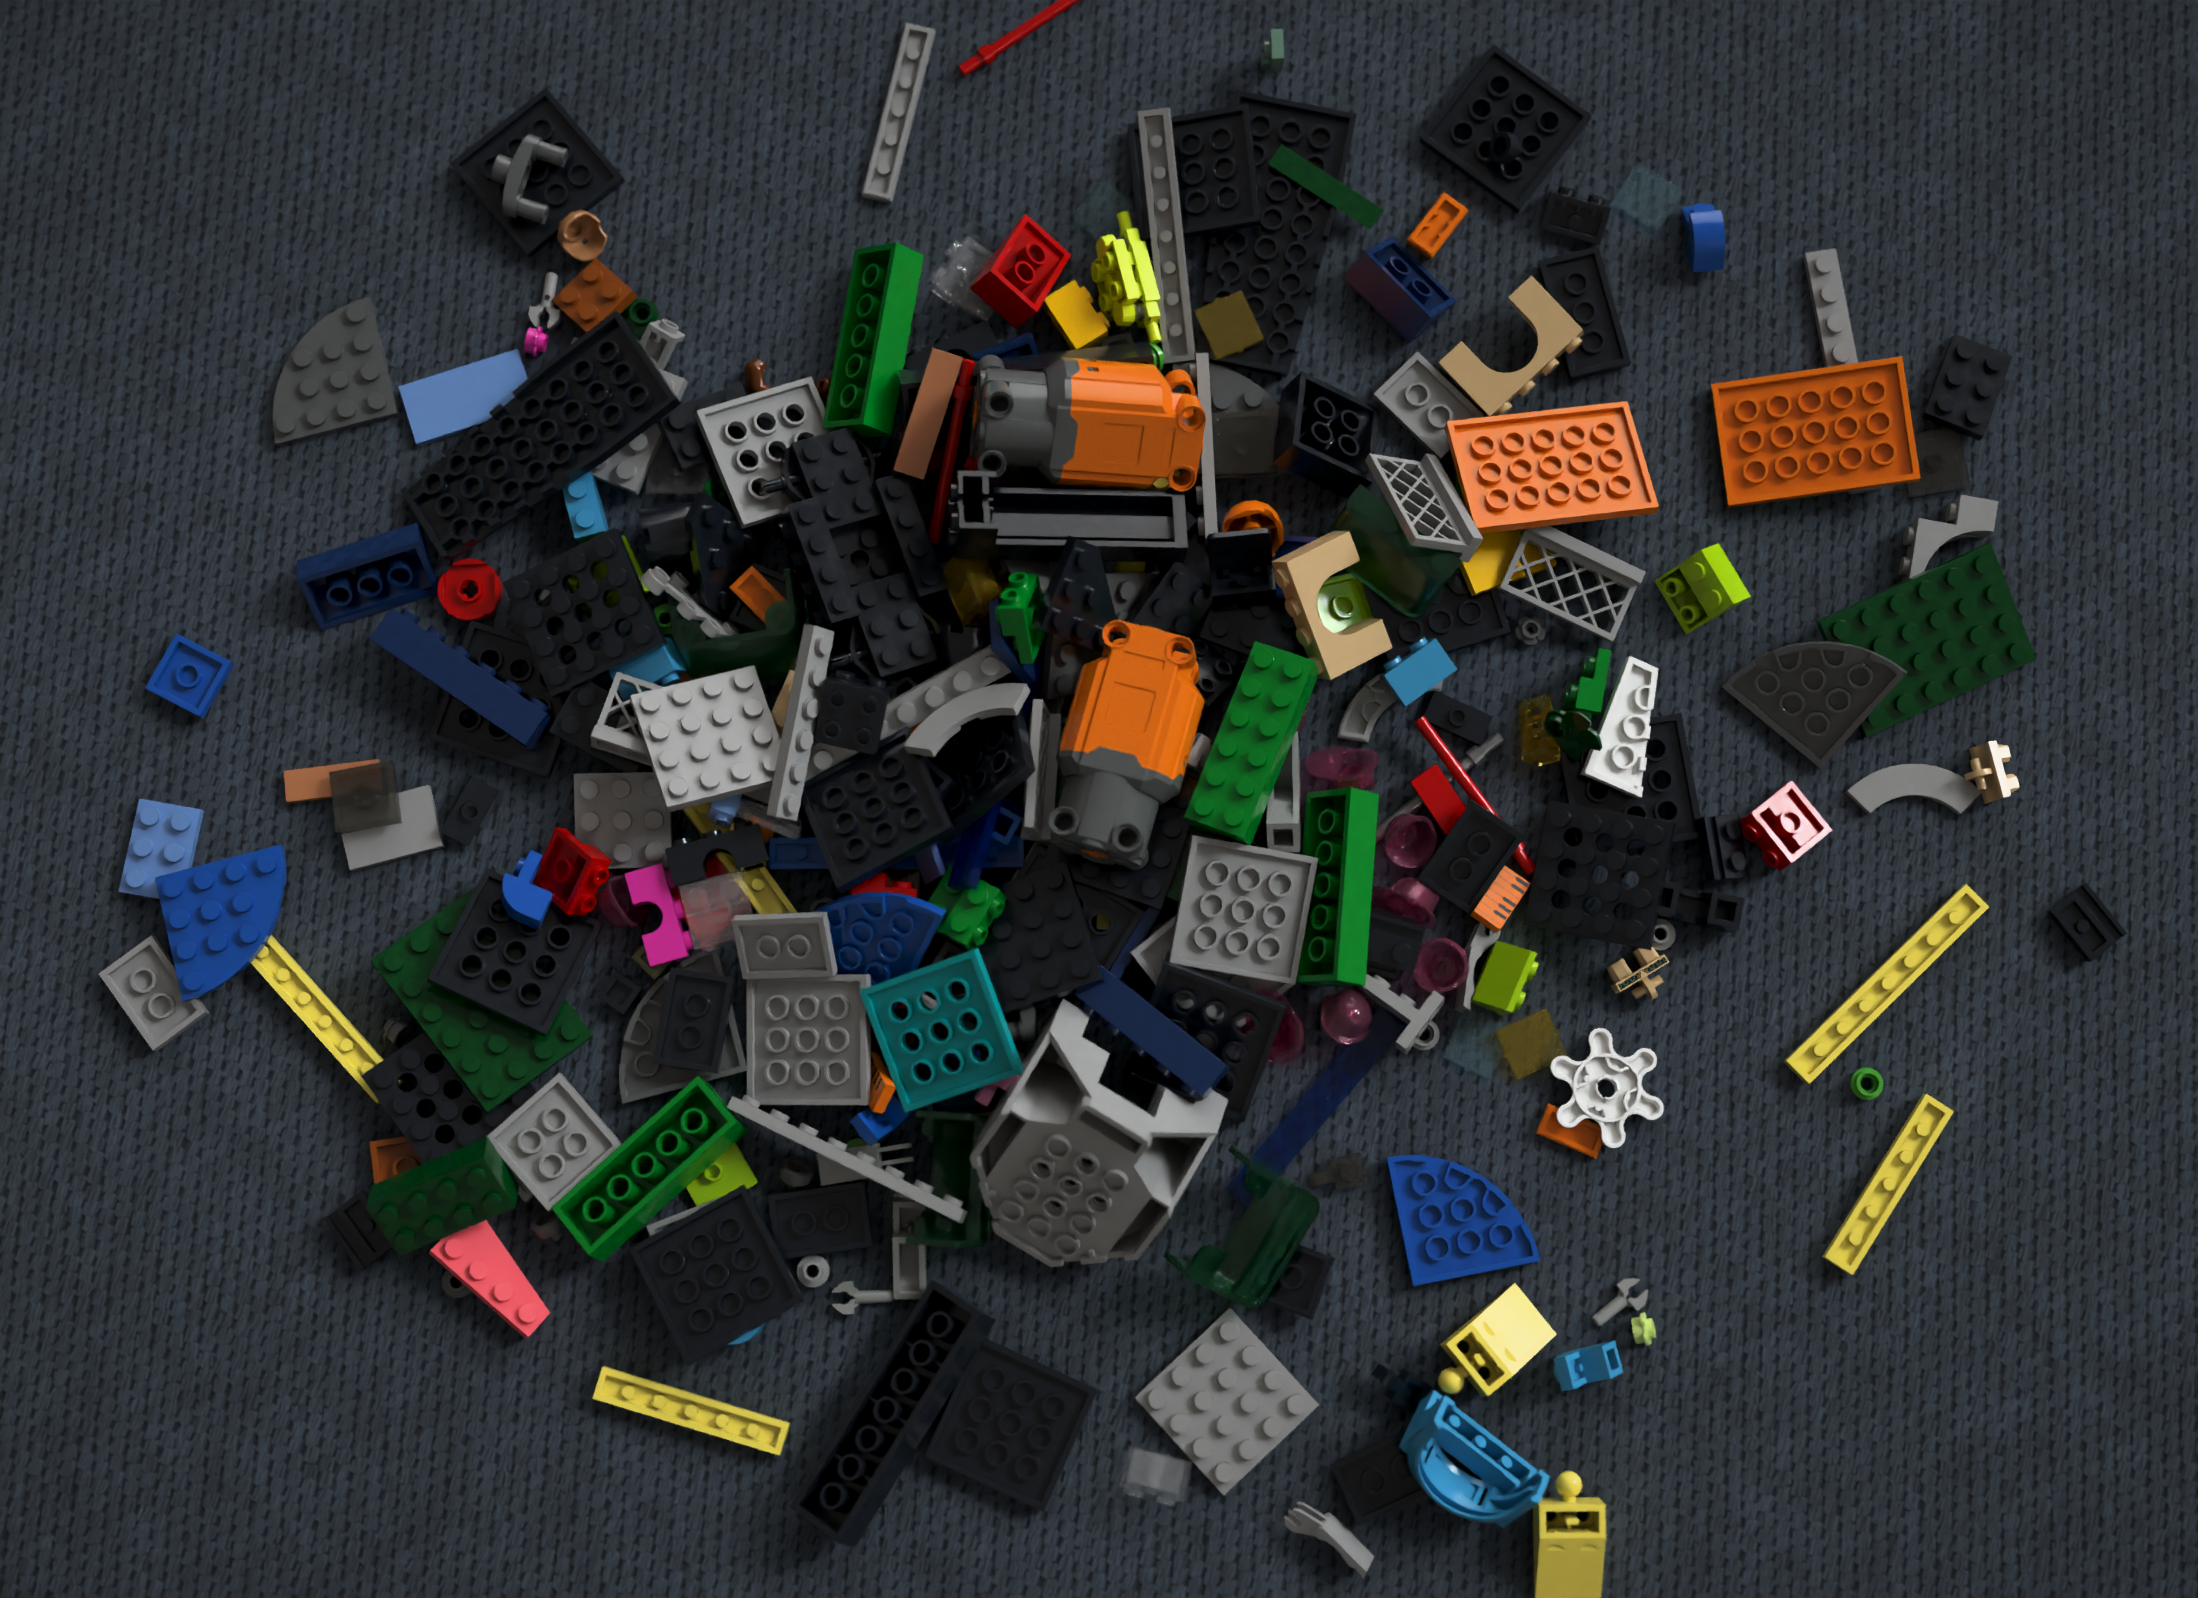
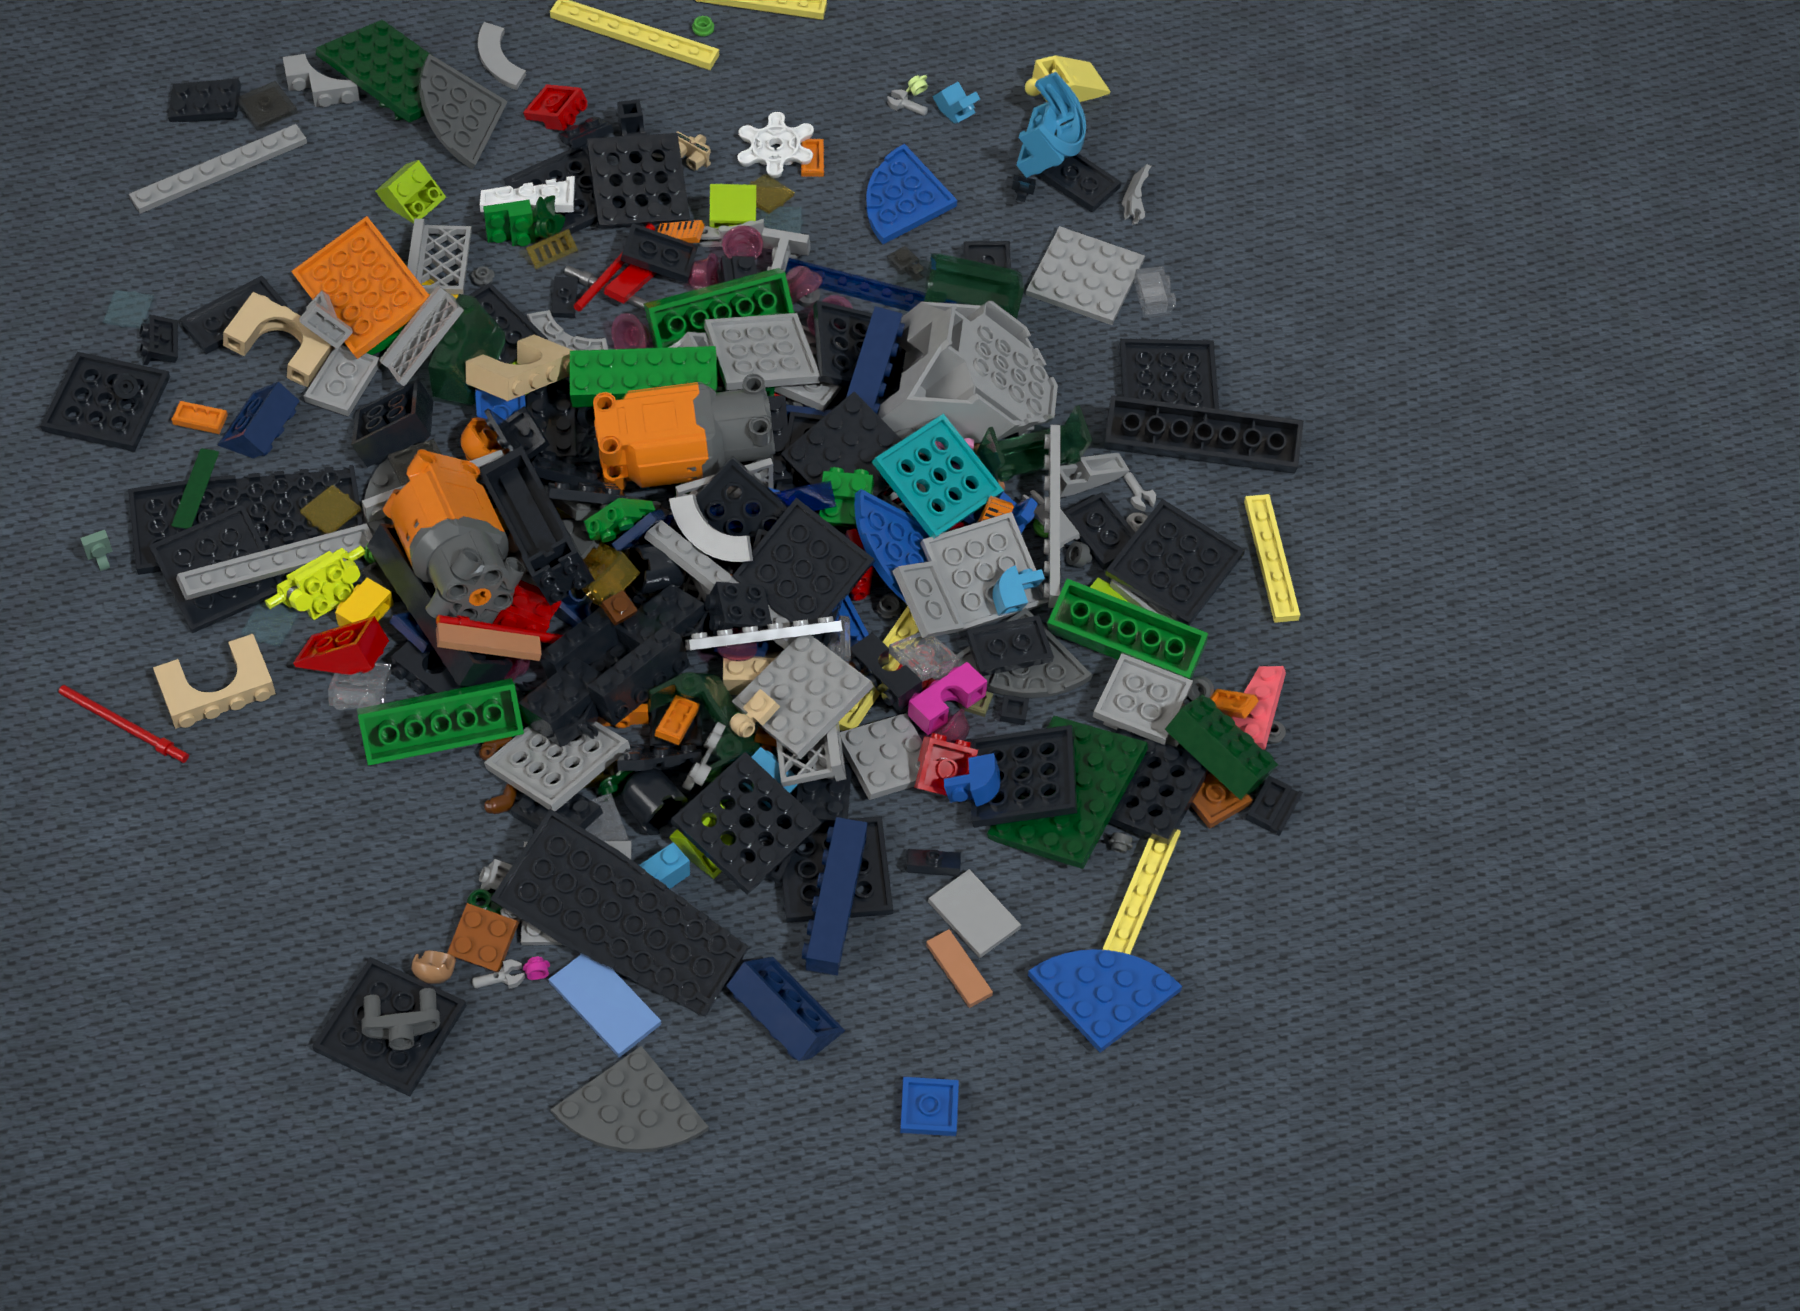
camera: 120 degrees left, 25 degrees down
(150, 993) = (1187, 1022): light grey plate -> none
(159, 844) = (1075, 1070): medium blue plate -> none
(365, 797) = (961, 930): clear smoke plate -> none
(457, 578) = (769, 920): red plate -> none
(506, 1246) = (1234, 703): none -> orange plate
(709, 679) = (758, 709): none -> tan plate
(769, 1055) = (1010, 587): none -> dark azure brick
(898, 113) = (236, 790): light grey tile -> none
(915, 577) = (619, 607): none -> reddish brown plate
(1029, 89) = (190, 705): none -> tan arch
(1410, 840) = (662, 287): clear pink helmet -> none
(1417, 671) = (544, 316): dark azure brick -> none
(1497, 394) = (322, 320): none -> light grey bracket
(1497, 1338) = (971, 150): light yellow slope -> none
(1705, 237) = (147, 258): blue brick -> none
(1815, 432) = (273, 162): orange plate -> none
(1989, 771) = (469, 20): tan hips -> none

